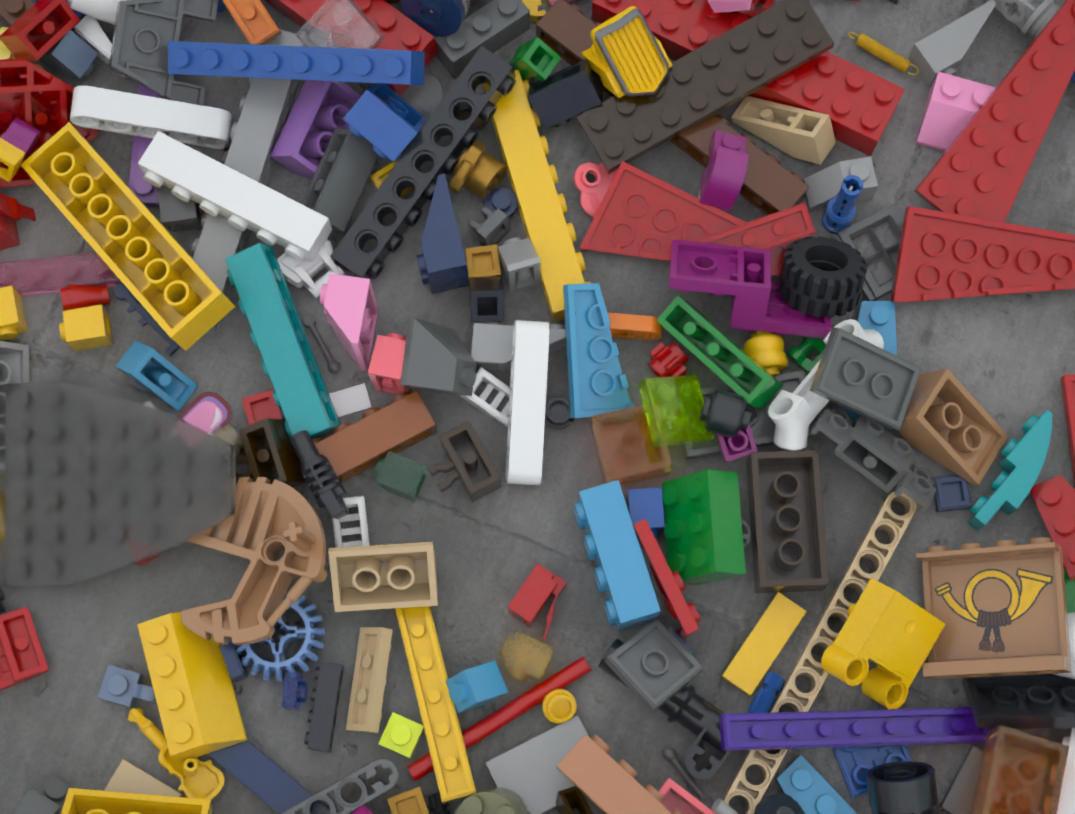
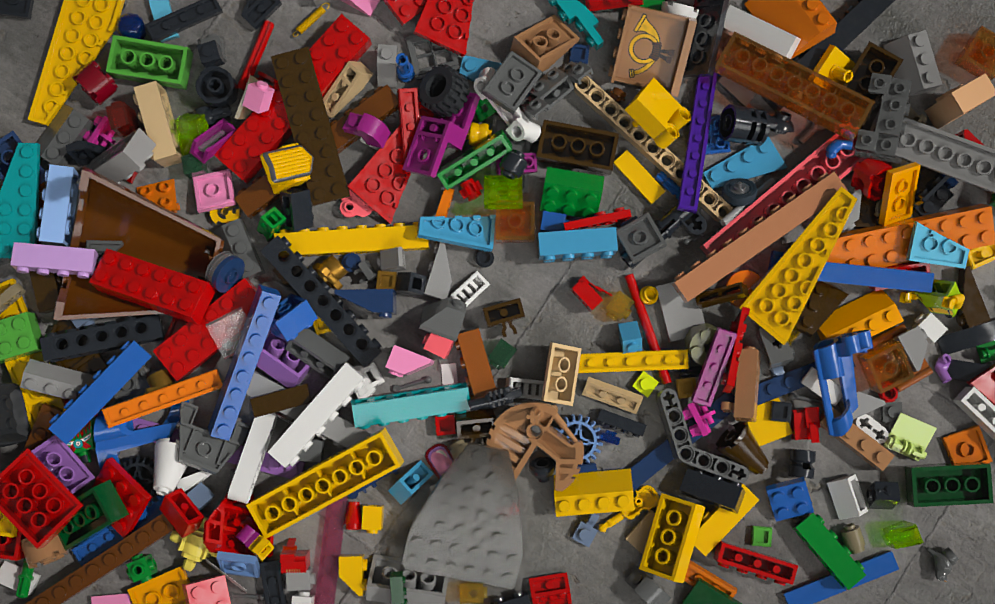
camera: 75 degrees left, 10 degrees up
(216, 584) = (542, 468): none -> black brick
(248, 138) = (280, 400): none -> dark brown tile
(527, 402) = (477, 273): white beam -> none
(898, 573) = (618, 95): none -> reddish brown plate

